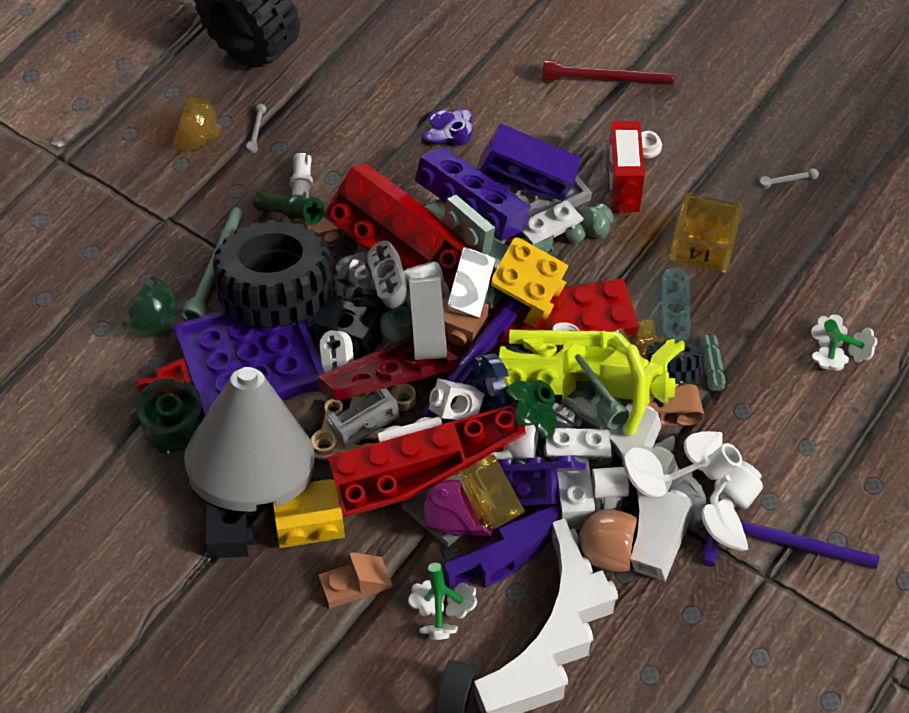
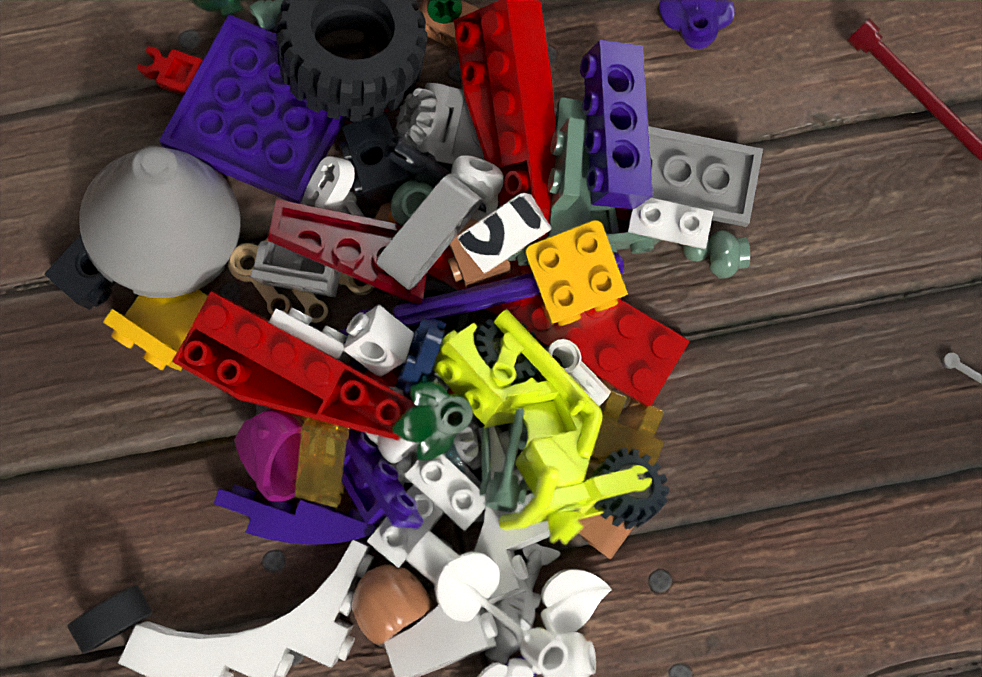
camera: 50 degrees right, 25 degrees up
(169, 414) = (128, 93): clear green brick -> none
(359, 579) = (149, 422): nougat slope -> none
(395, 279) = (426, 168): light grey beam -> none
(429, 599) = (188, 502): white plant -> none
(528, 163) = (708, 141): dark purple wedge -> none
(625, 166) = (815, 224): red brick -> none
(651, 144) = (873, 212): white plate -> none
(681, 297) = (737, 405): clear light blue beam -> none
(706, 232) = (820, 370): clear yellow brick -> none
(712, 362) = (682, 509): sand green axle -> none
(832, 334) = (803, 610): white plant -> none

